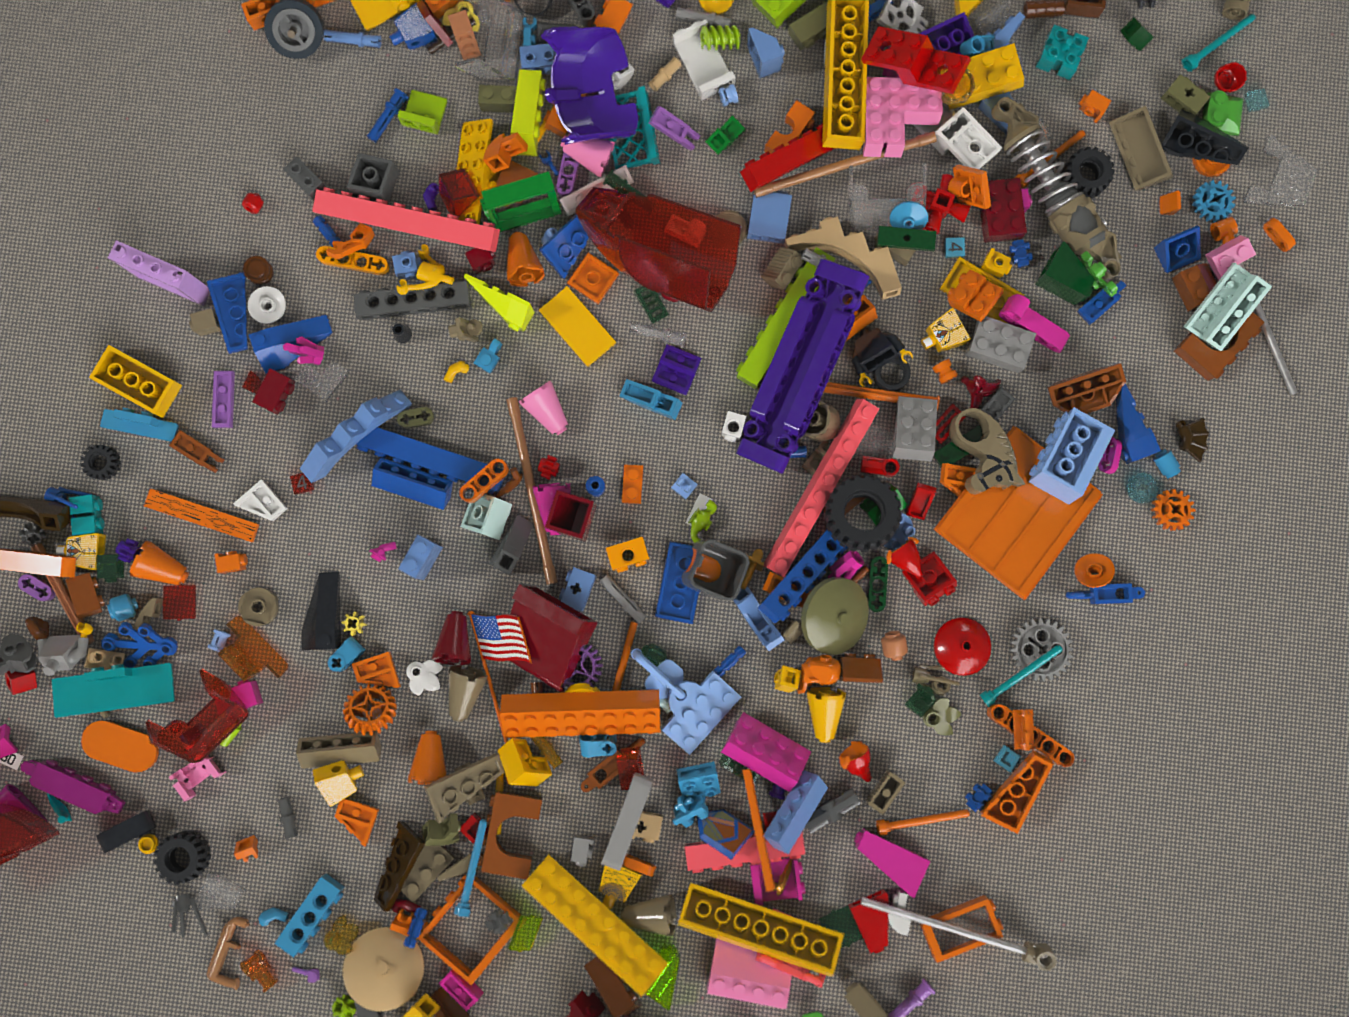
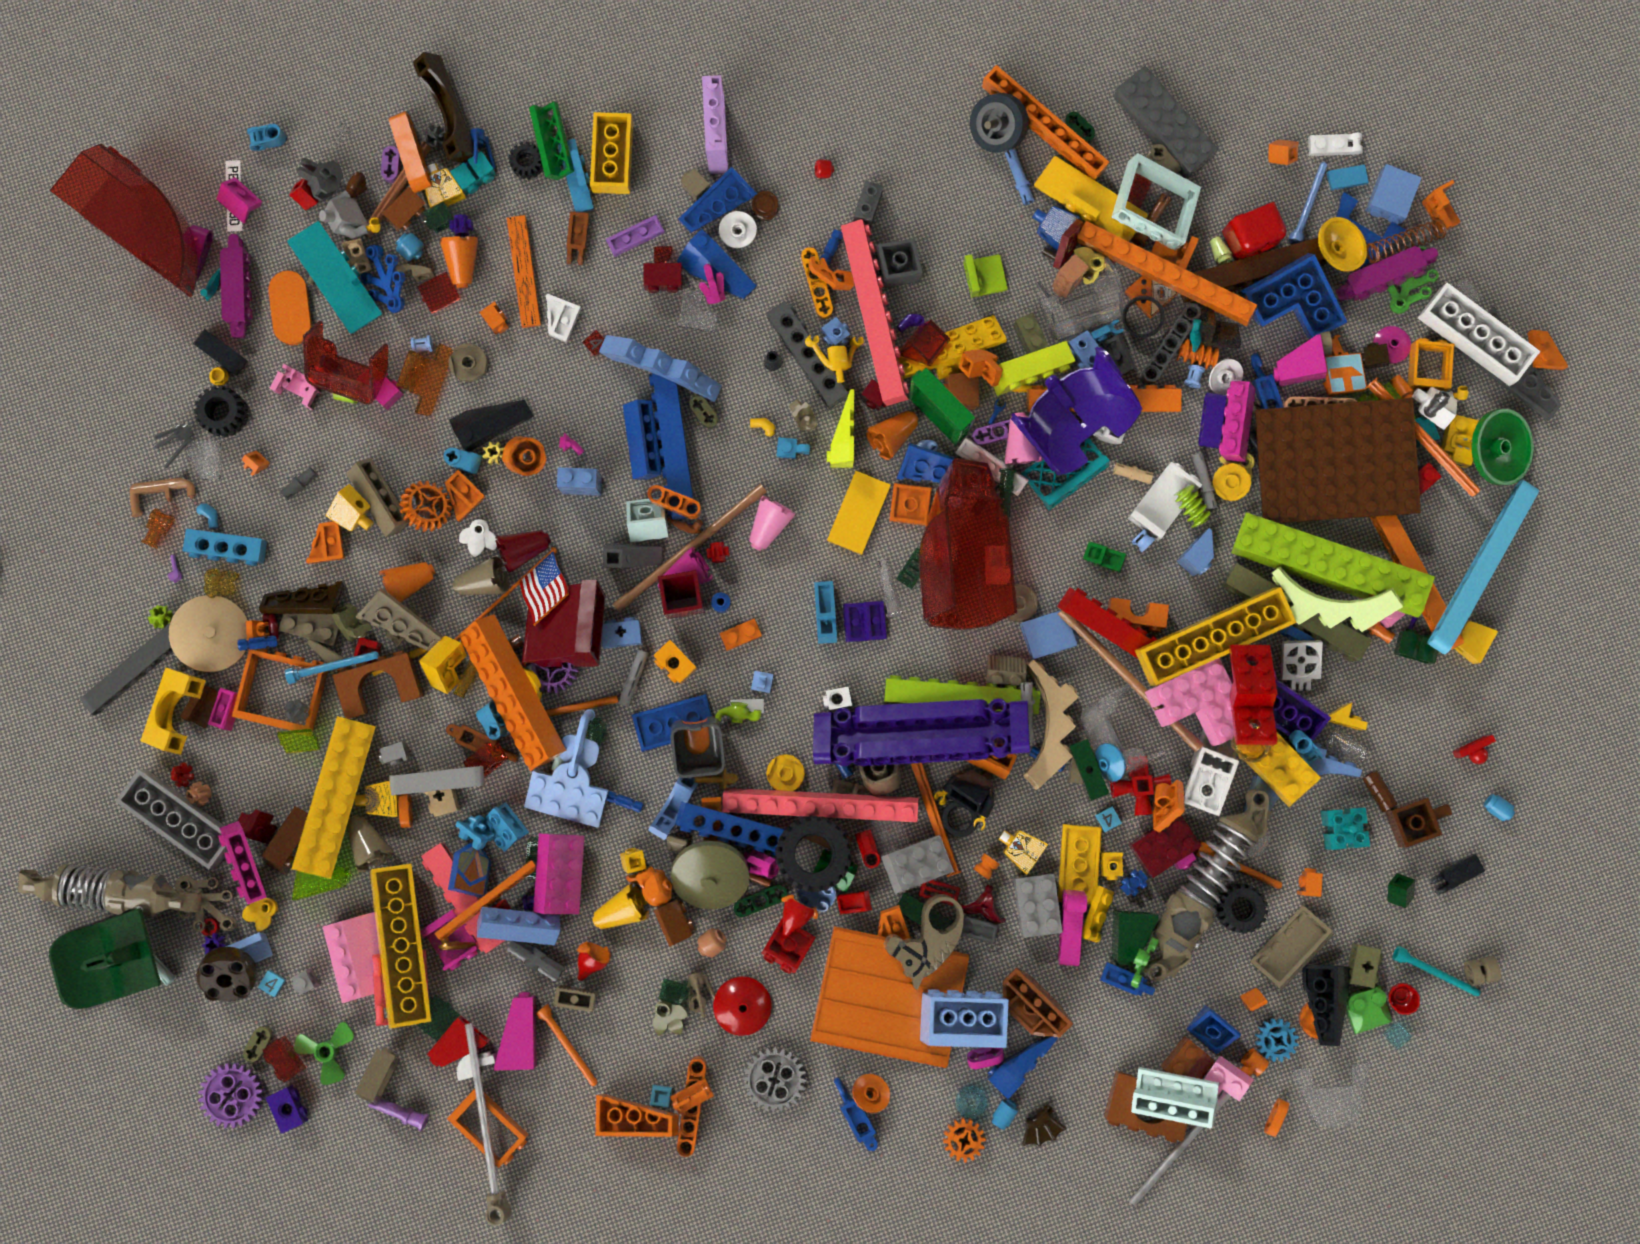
camera: 60 degrees right, 0 degrees up
(96, 435) = (548, 144): none -> green fence
(361, 594) = (514, 458): none -> orange brick
(392, 108) = (974, 245): blue pin -> none
(673, 127) = (1085, 505): medium lavender hinge -> none
(775, 506) = (785, 773): none -> yellow tile
(974, 295) = (1069, 858): orange plate -> none
(982, 795) = (613, 1088): blue piece -> none
(991, 696) = (709, 1053): teal piece -> none
(1038, 303) = (1097, 914): none -> yellow plate

